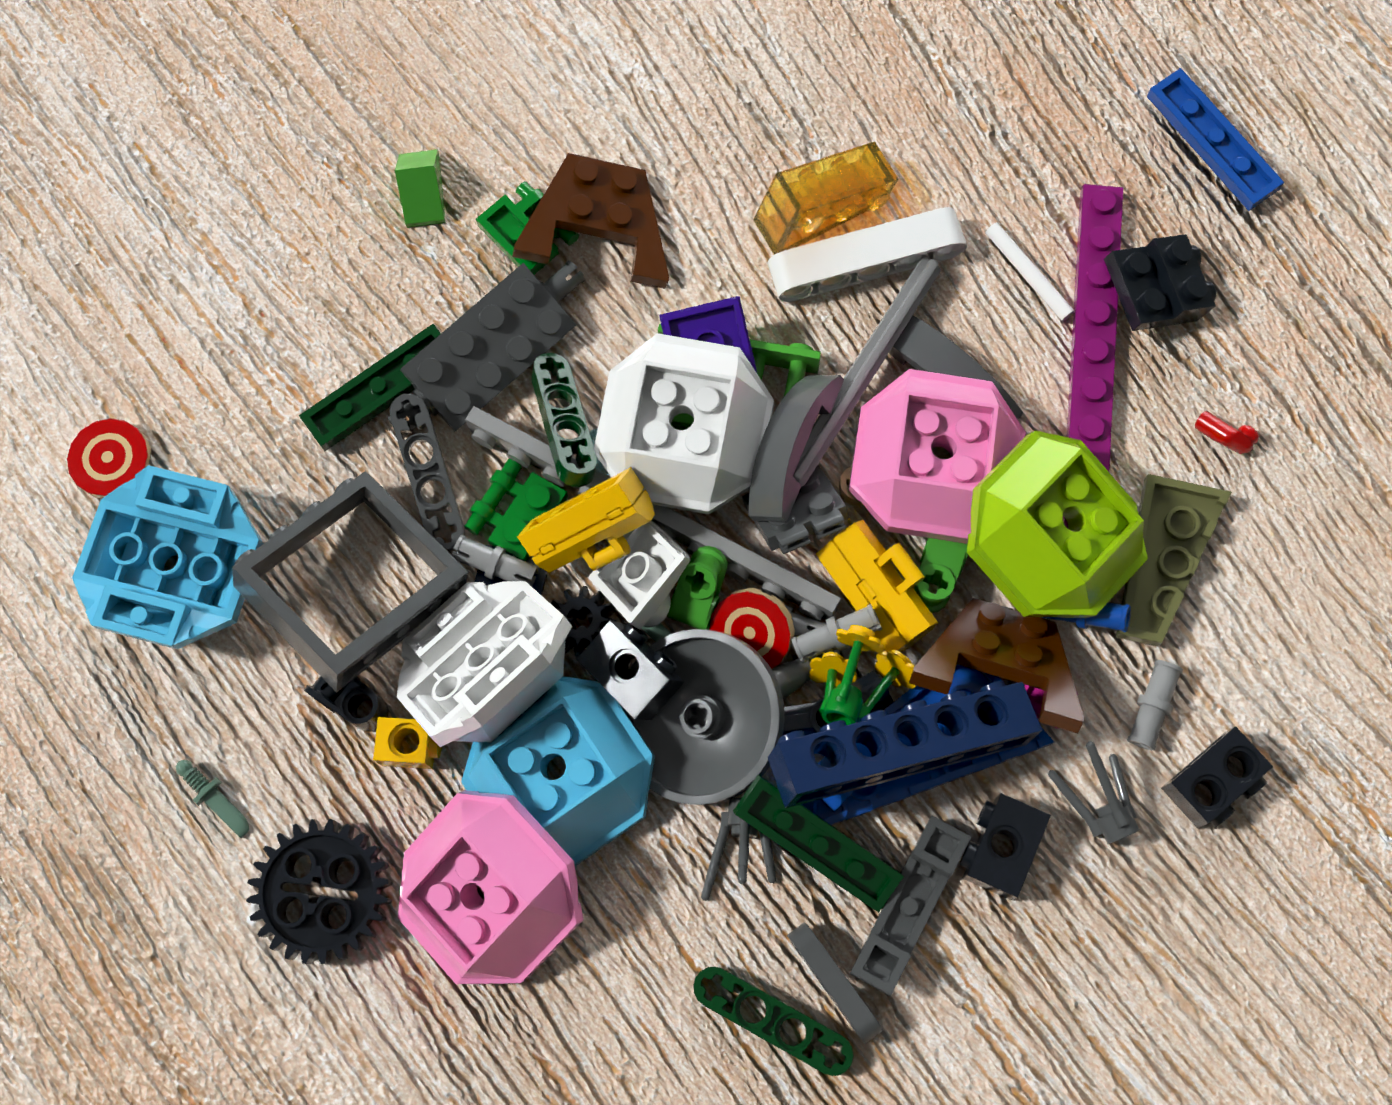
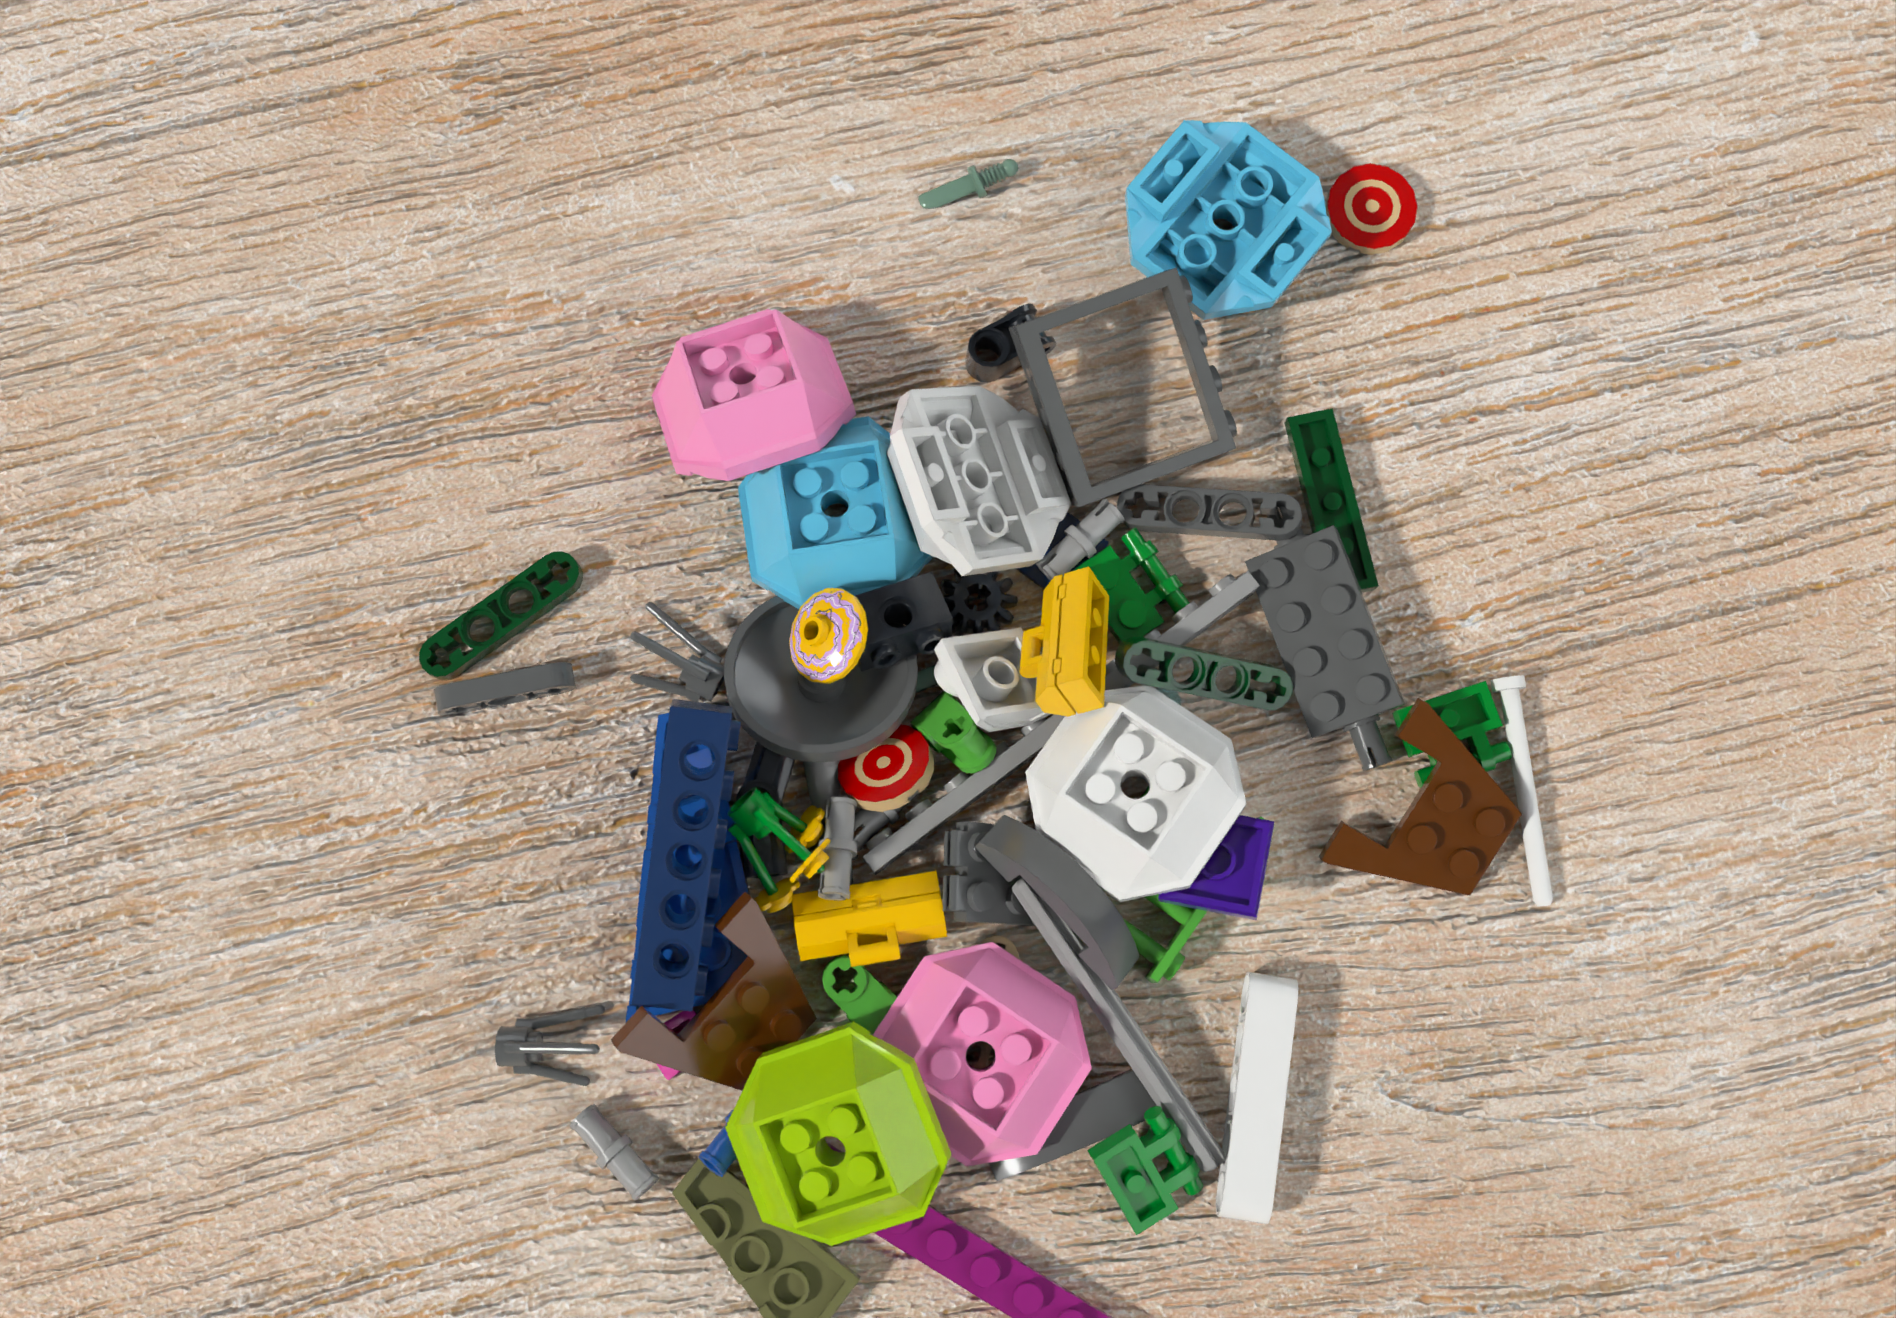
camera: 105 degrees right, 5 degrees up
(312, 930) = (792, 228): black gear -> none
(388, 744) = (938, 363): yellow brick -> none
(420, 188) = (1555, 640): bright green slope -> none
(506, 185) = (1524, 786): none -> white bar
(664, 700) = (828, 635): none -> dish
(818, 844) = (632, 732): dark green plate -> none
(823, 196) = (1347, 1083): clear yellow wedge -> none
(910, 905) = (539, 795): dark grey slope -> none
(971, 311) = (1132, 1176): none -> green plate
(1024, 828) = (522, 908): black brick -> none
(1029, 272) = (1158, 1276): white bar -> none
(1212, 771) = (521, 1172): black brick -> none

